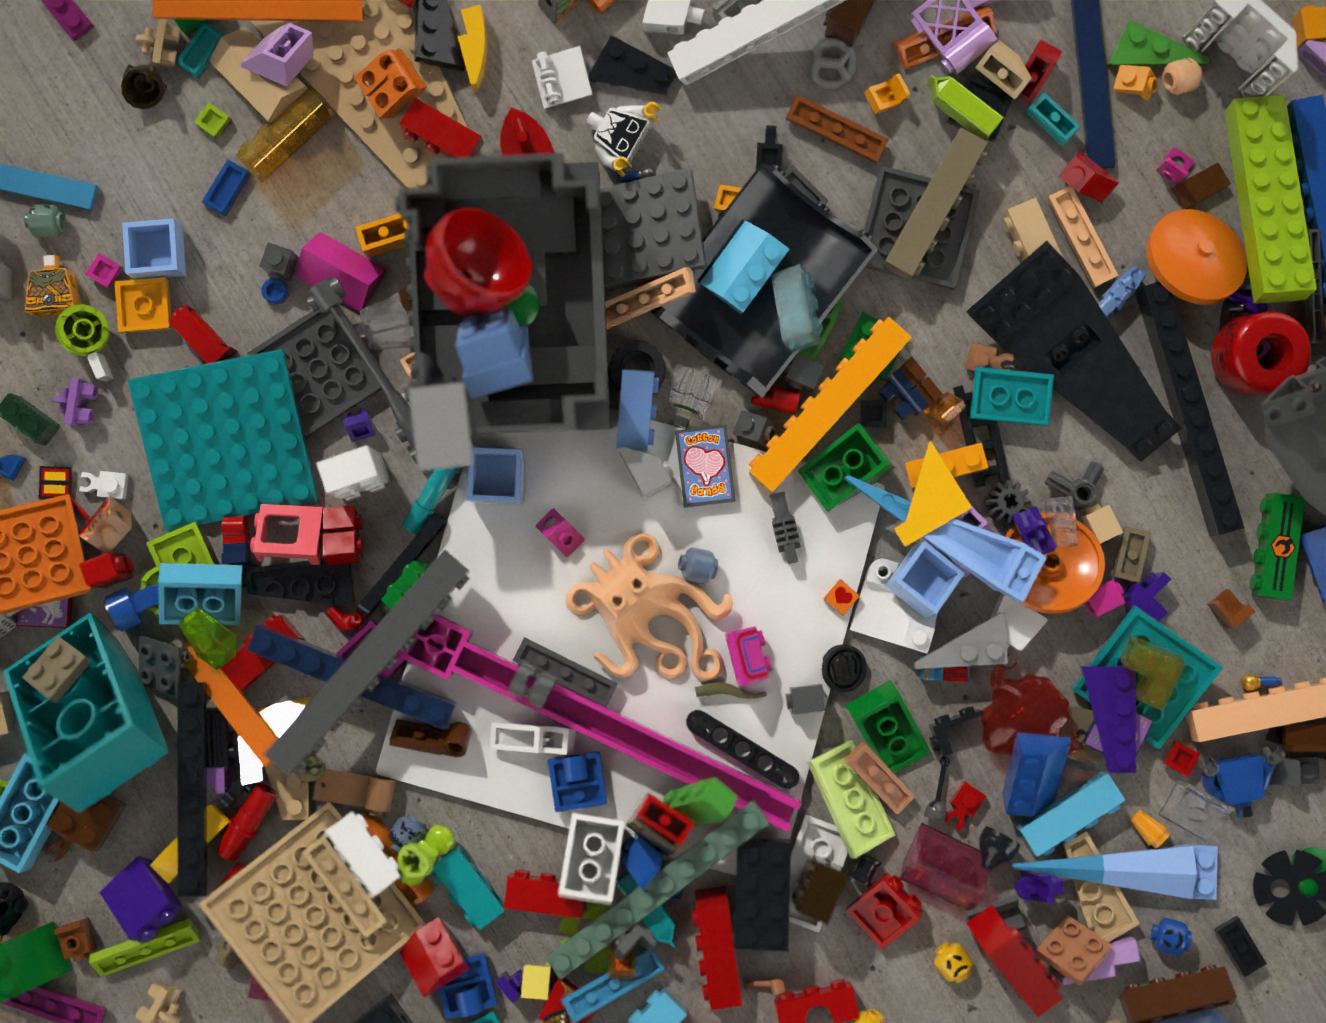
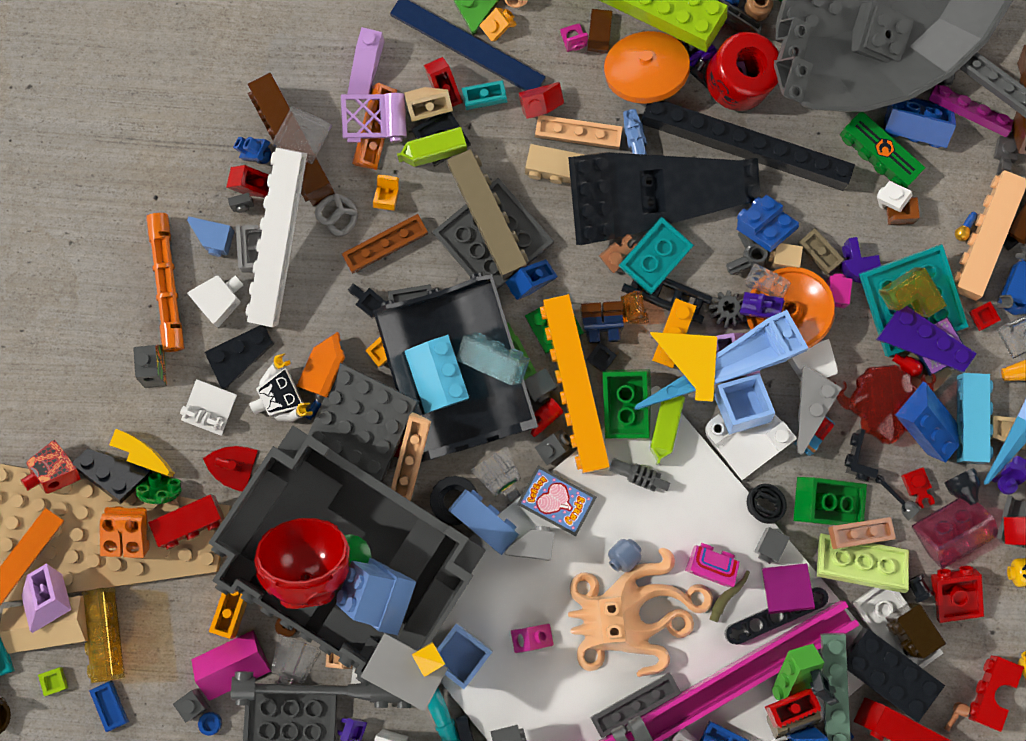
camera: 55 degrees left, 5 degrees down
(452, 86) = (158, 489): none -> green dish
(468, 439) = (428, 659): none -> yellow slope
(675, 155) = (322, 366): none -> orange tile
(702, 831) = (821, 687): none -> black plate
(776, 742) = (788, 588): none -> magenta tile
(841, 597) = (715, 470): orange tile -> none
(849, 521) = (666, 427): none -> lime piece
(902, 292) = (530, 279): none -> blue slope
(1078, 715) = (909, 365): none -> red cylinder
(1121, 481) = (766, 223): none -> blue plate
(1239, 588) = (893, 196): none -> white bracket

